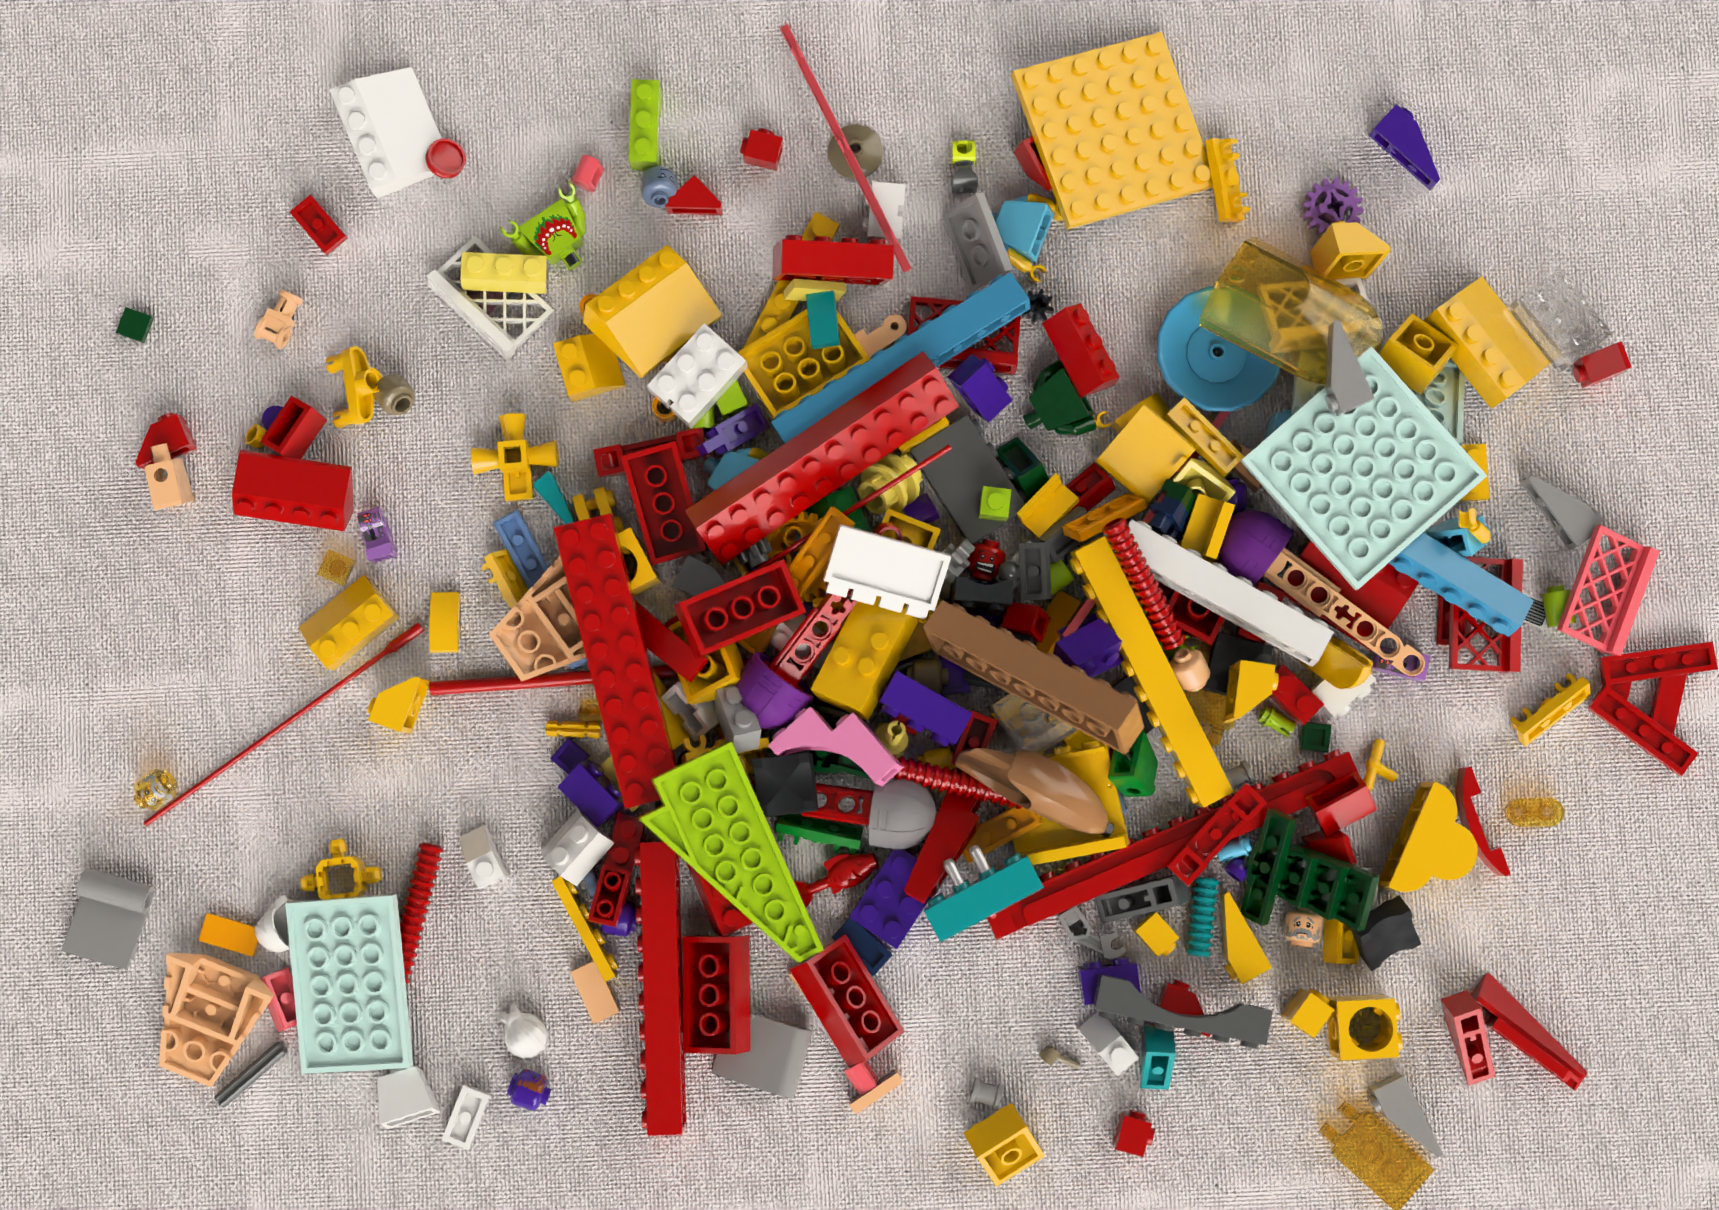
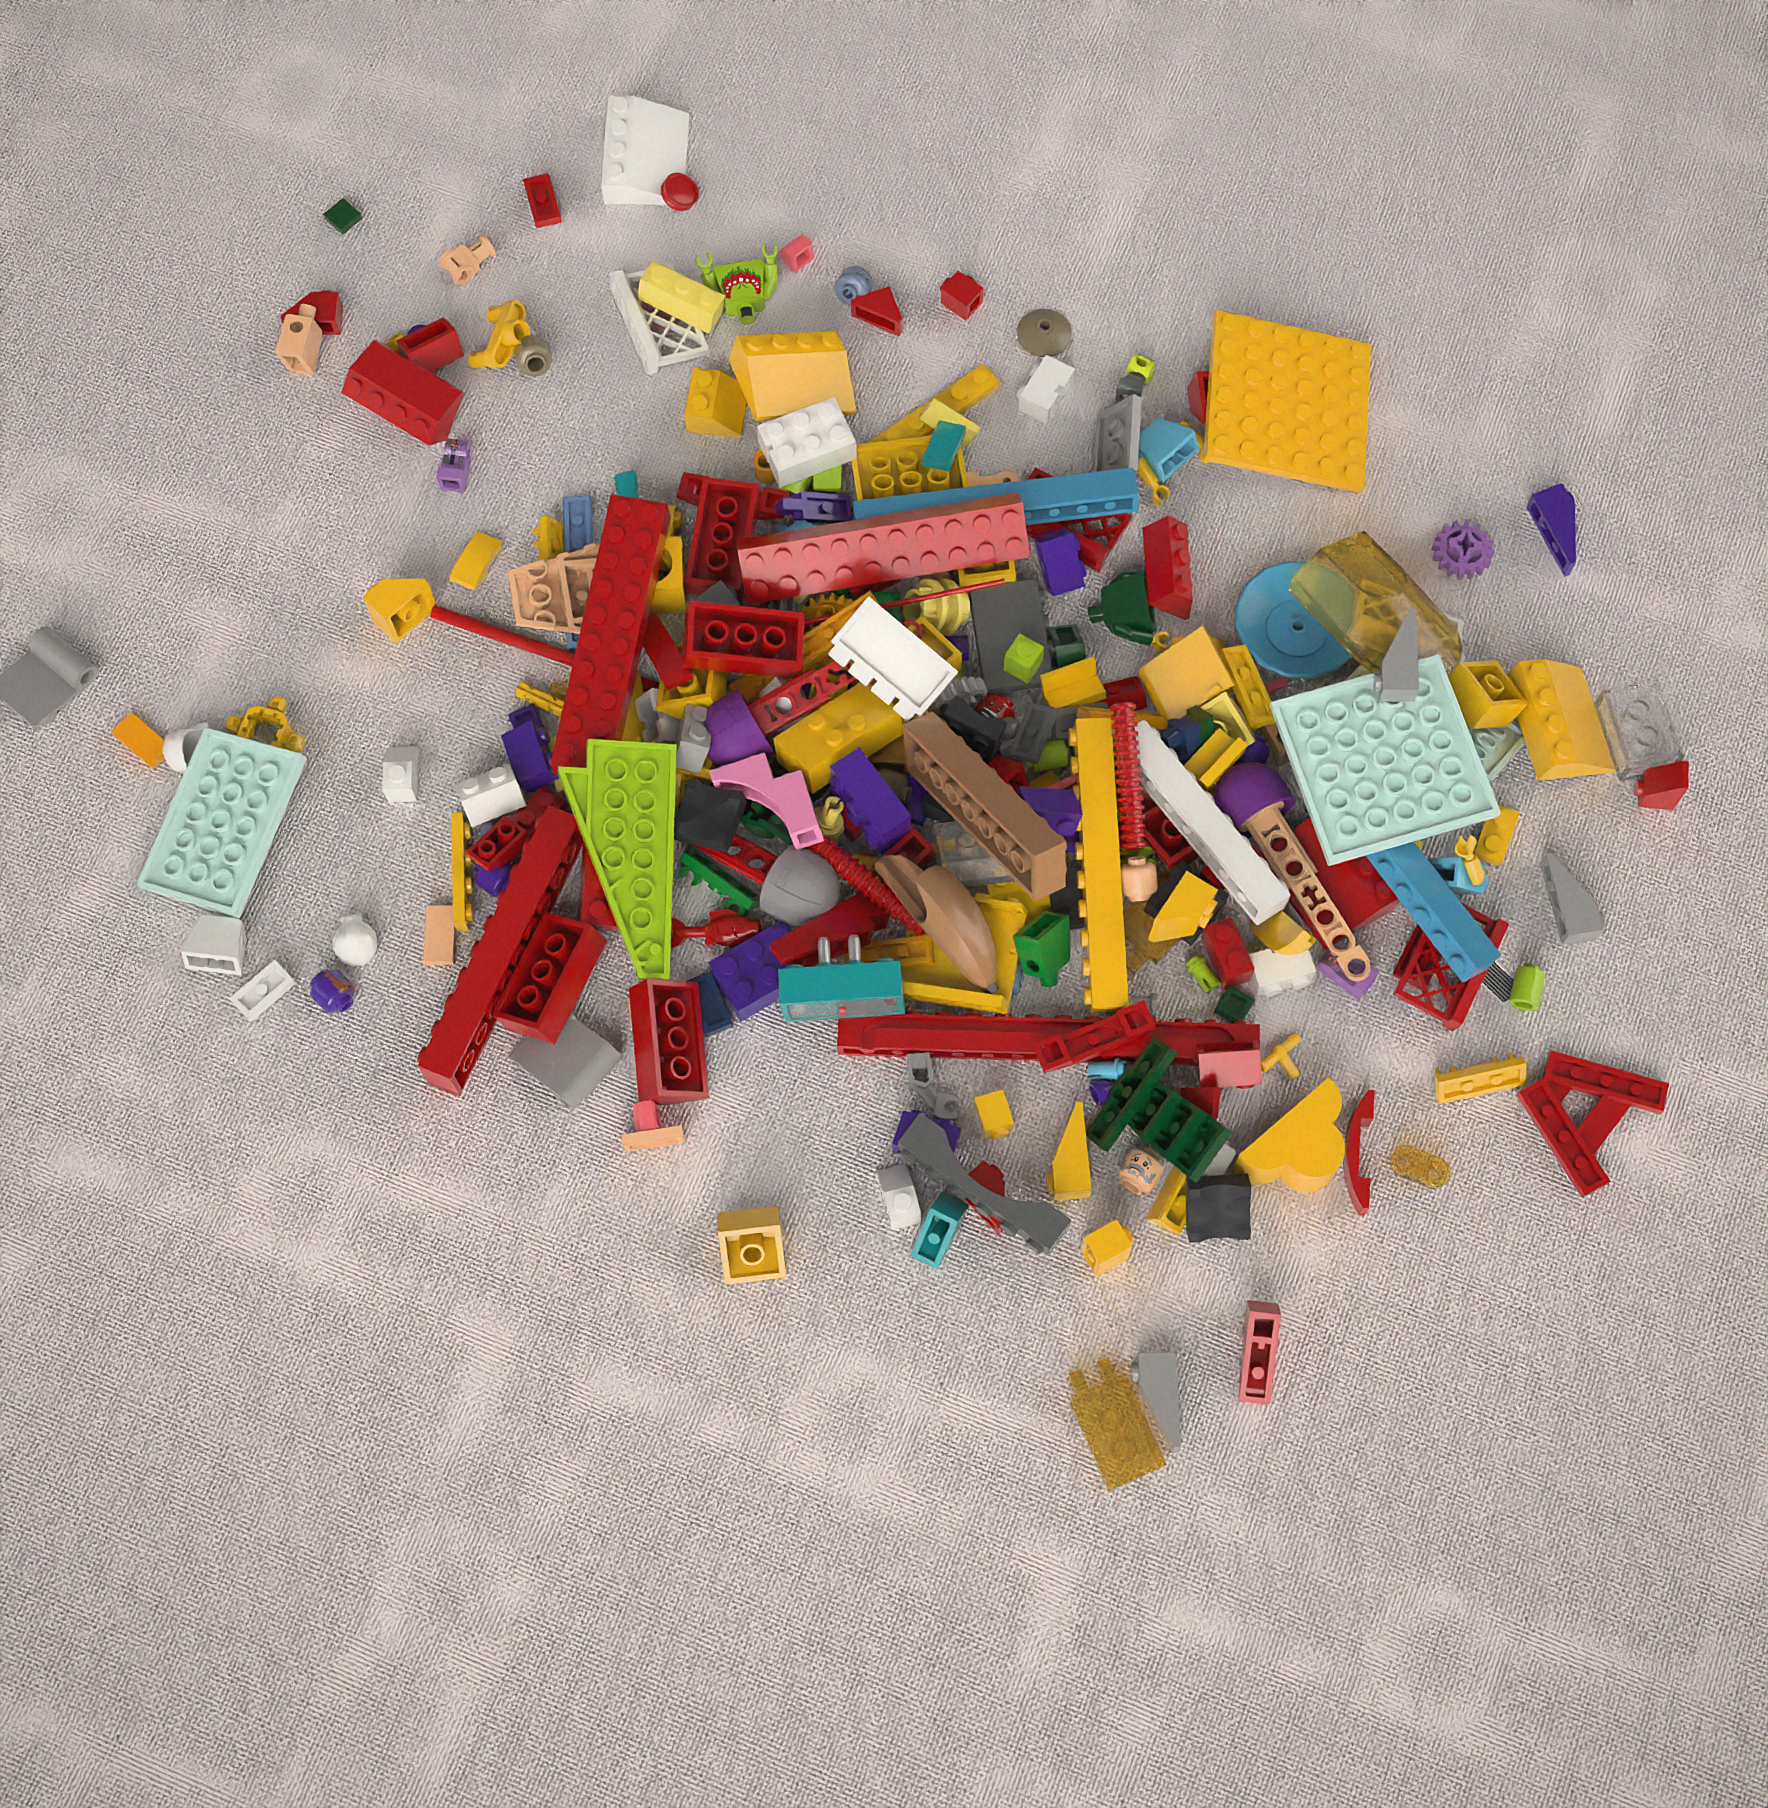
camera: 25 degrees right, 15 degrees down
(155, 789) = (145, 588): clear yellow head -> none
(207, 1014) = (80, 796): light nougat wedge -> none
(250, 1074) = (91, 867): dark grey axle -> none
(283, 1003) = (153, 810): coral slope -> none
(336, 567) = (405, 476): clear yellow plate -> none
(348, 623) = (391, 527): yellow slope -> none
(393, 646) = (419, 562): red piece -> none
(417, 902) = (319, 786): red piece -> none
(515, 458) = (611, 450): yellow brick -> none
(644, 124) = (872, 221): lime arch -> none
(833, 261) = (983, 401): red brick -> none
(845, 147) = (1035, 322): coral piece -> none
(986, 1093) = (758, 1189): light grey bush -> none
(1044, 308) = (1146, 515): black gear -> none
(1050, 1054) = (837, 1183): dark tan hand -> none
(1133, 1133) = (882, 1291): red brick -> none
(1142, 898) = (989, 1074): dark grey slope -> none
(1202, 916) = (1046, 1119): teal piece -> none
(1225, 180) = (1373, 486): yellow plate -> none
(1348, 251) = (1461, 586): yellow slope -> none
(1383, 1046) = (1147, 1259): yellow brick -> none
(1525, 1033) = (1318, 1375): red wedge -> none
(1624, 599) = (1592, 1011): coral fence -> none

